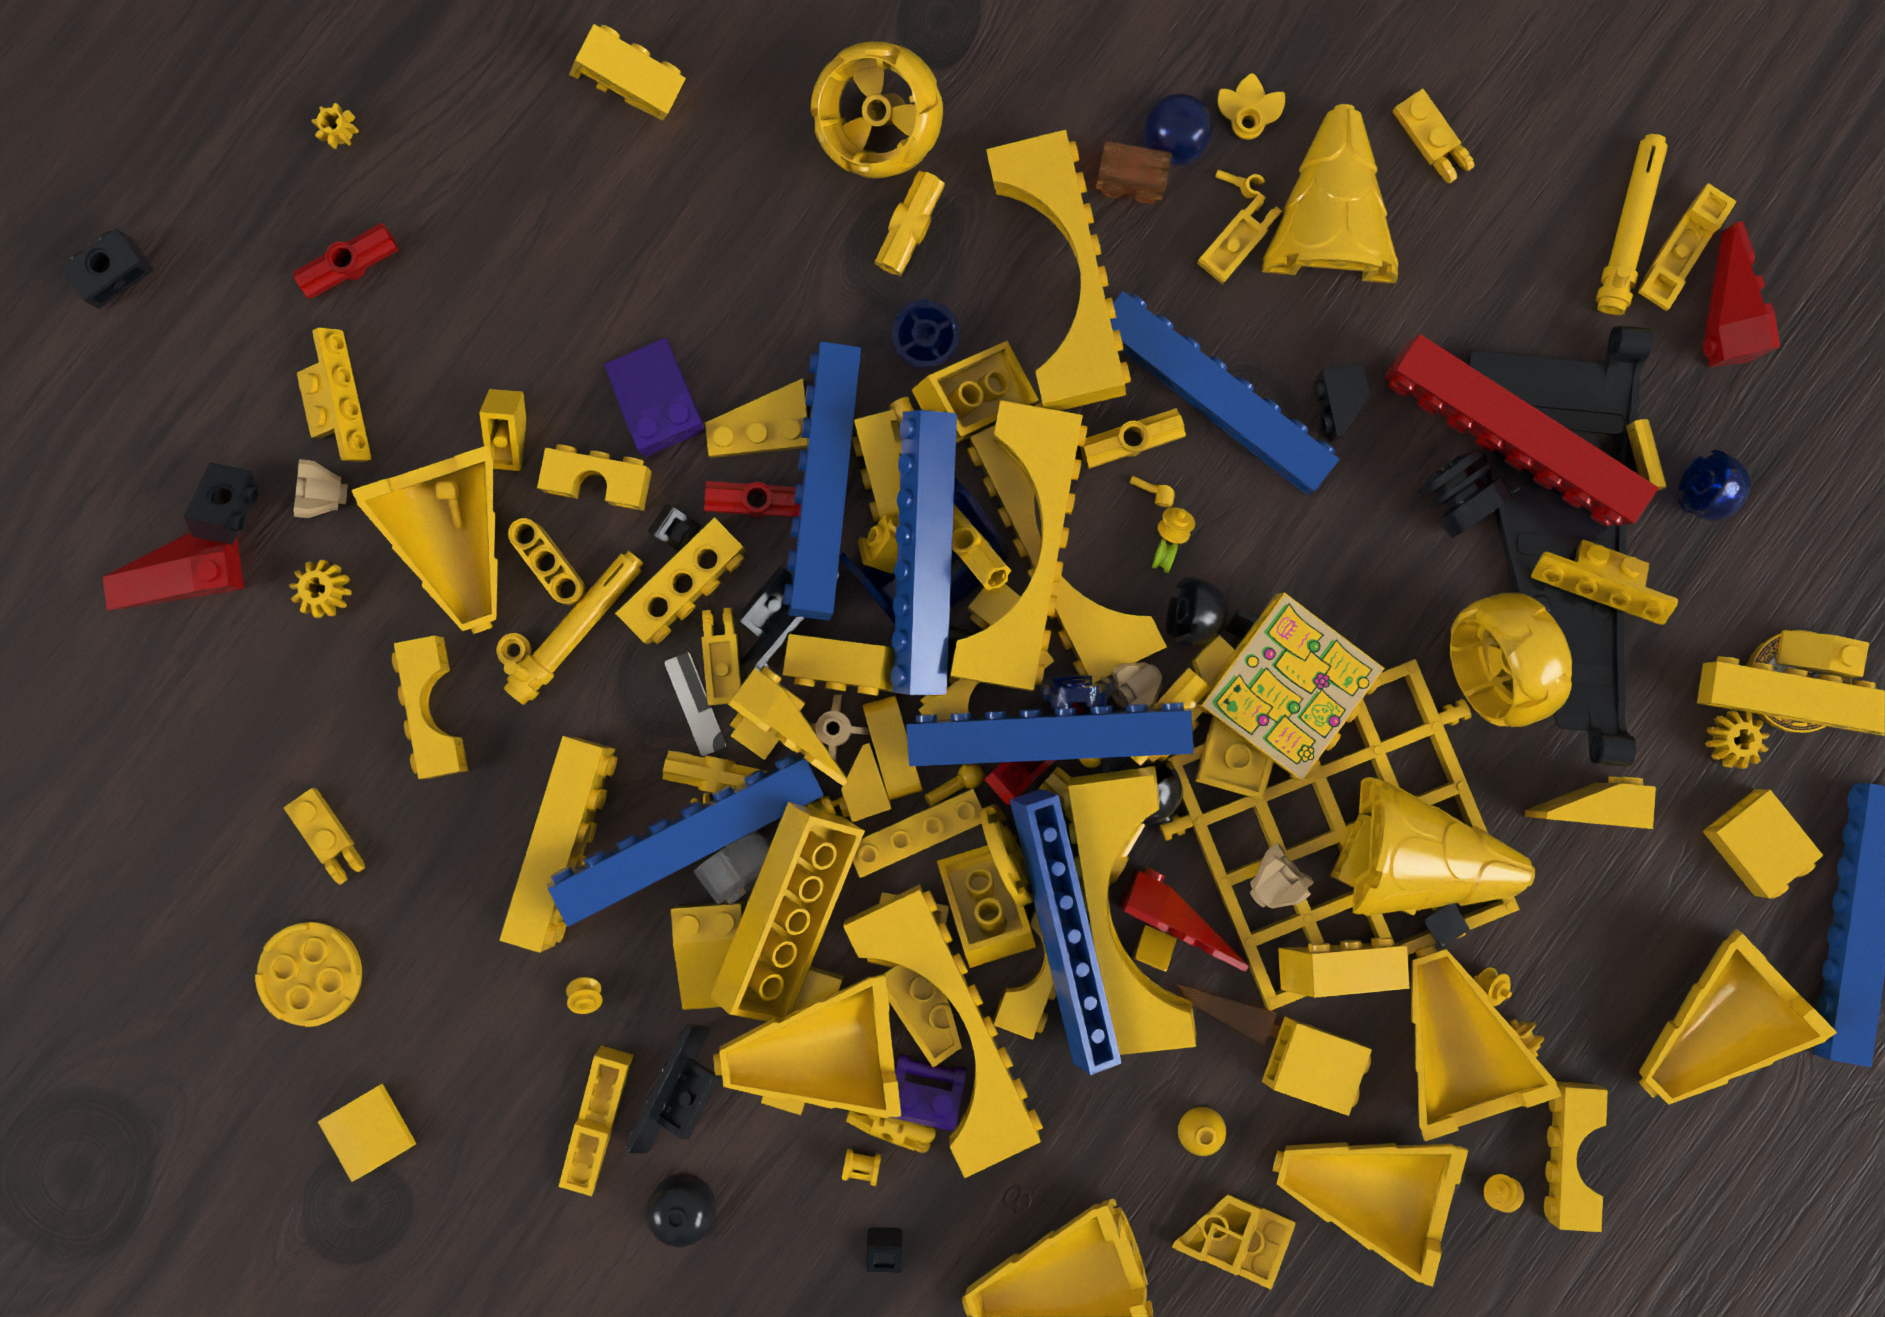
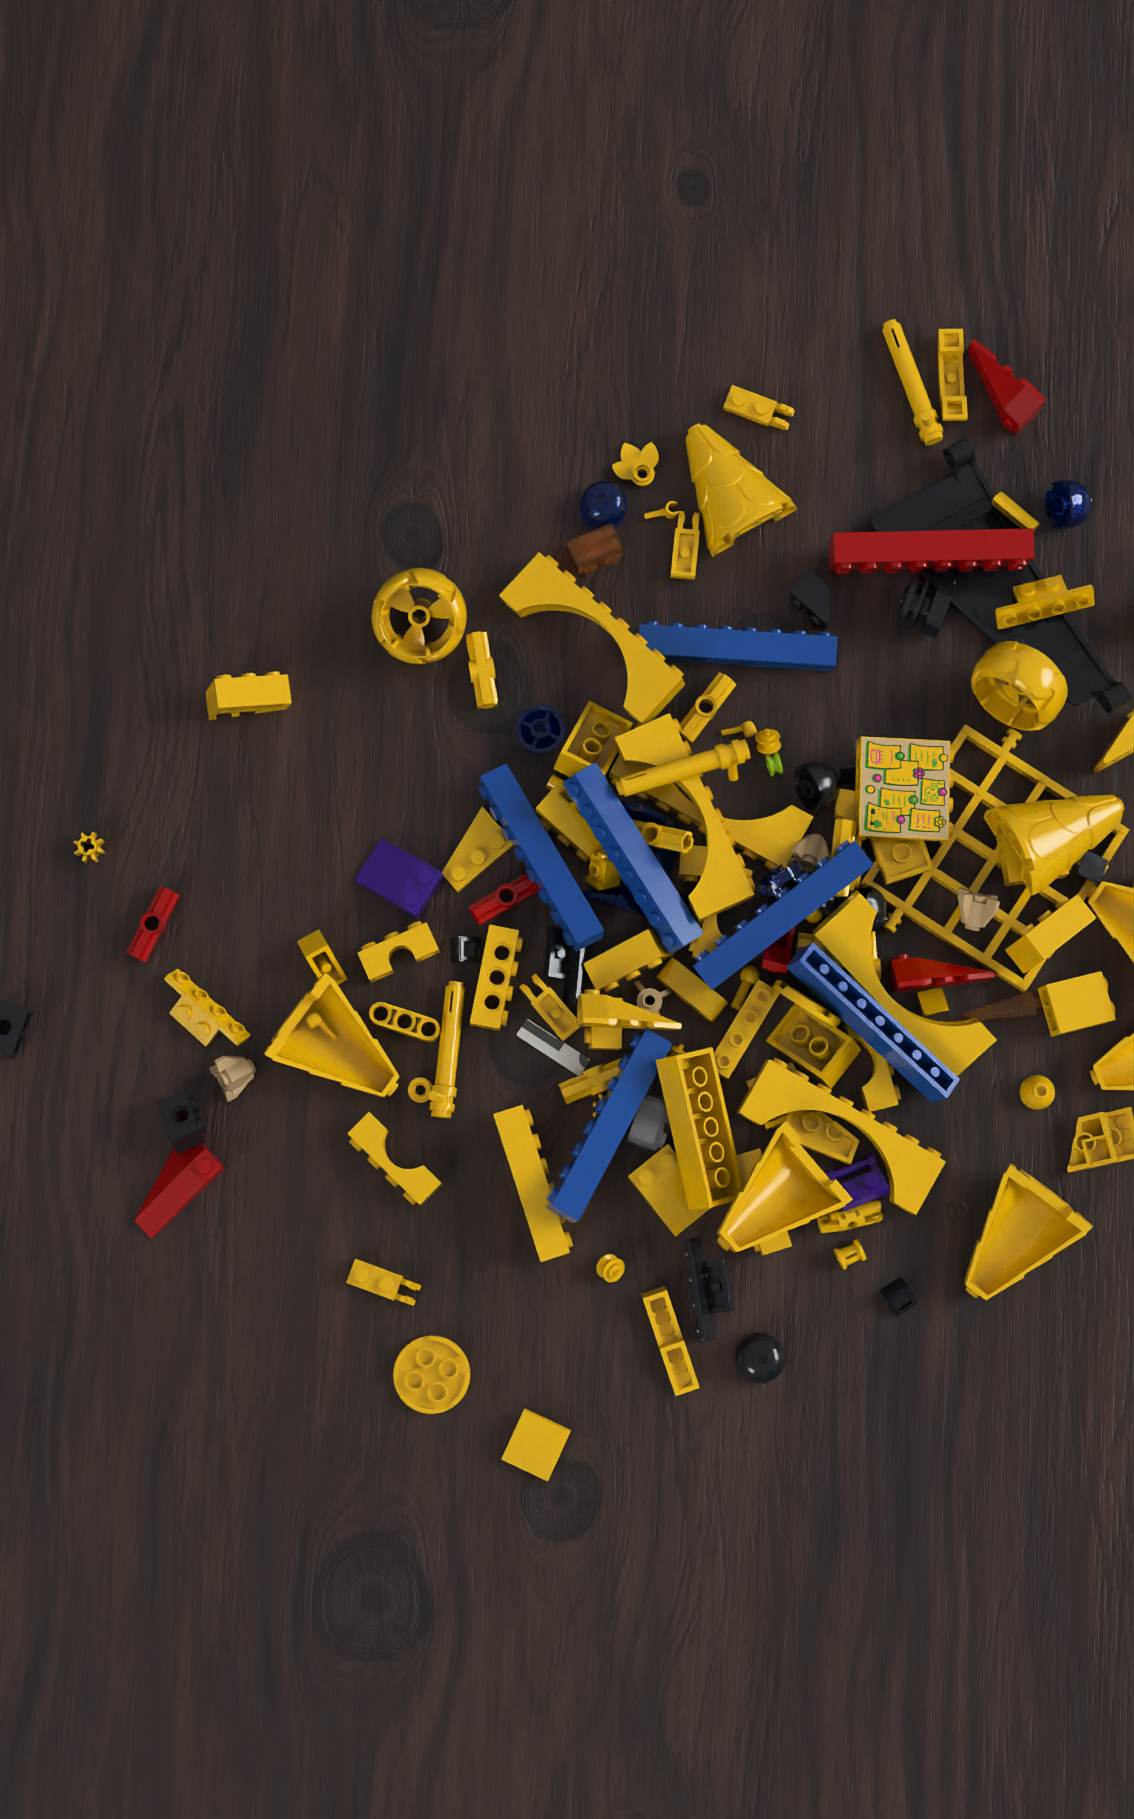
camera: 35 degrees left, 5 degrees down
(320, 602) = (280, 1125): yellow gear -> none
(865, 789) = (694, 1025): yellow slope -> none
(1106, 506) = (721, 757): none -> yellow cylinder

